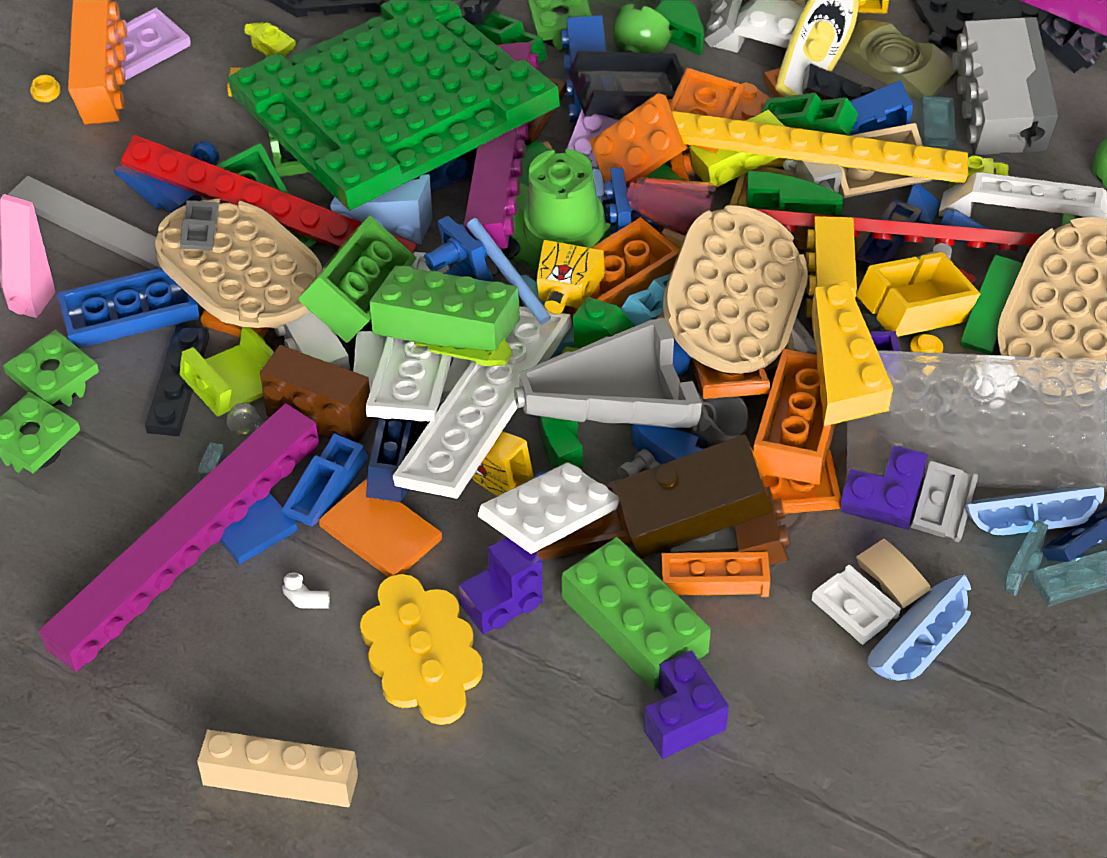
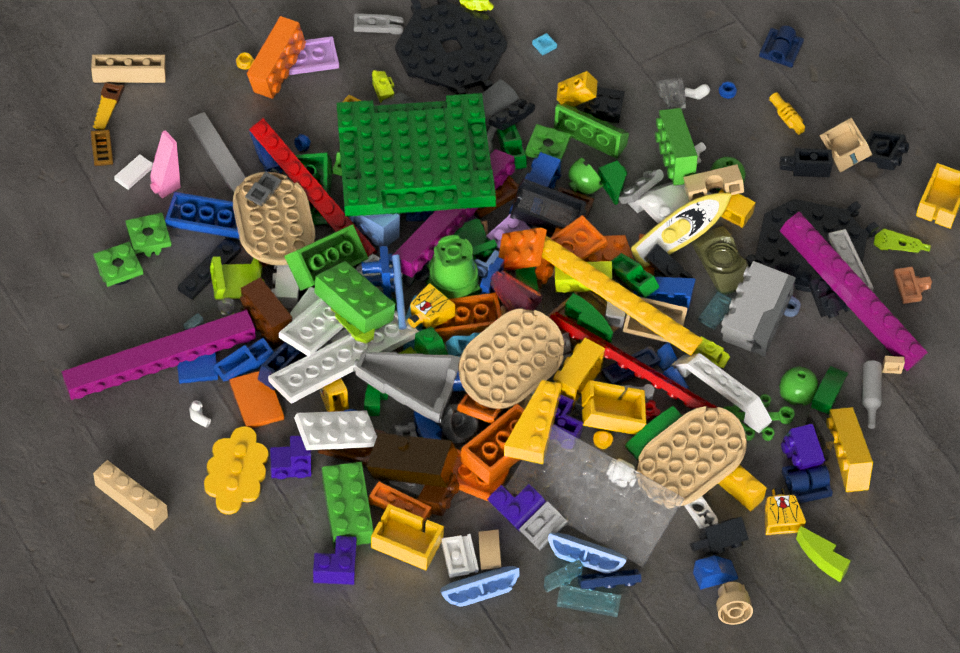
camera: 25 degrees right, 5 degrees up
(754, 623) = (402, 537): none -> yellow piece

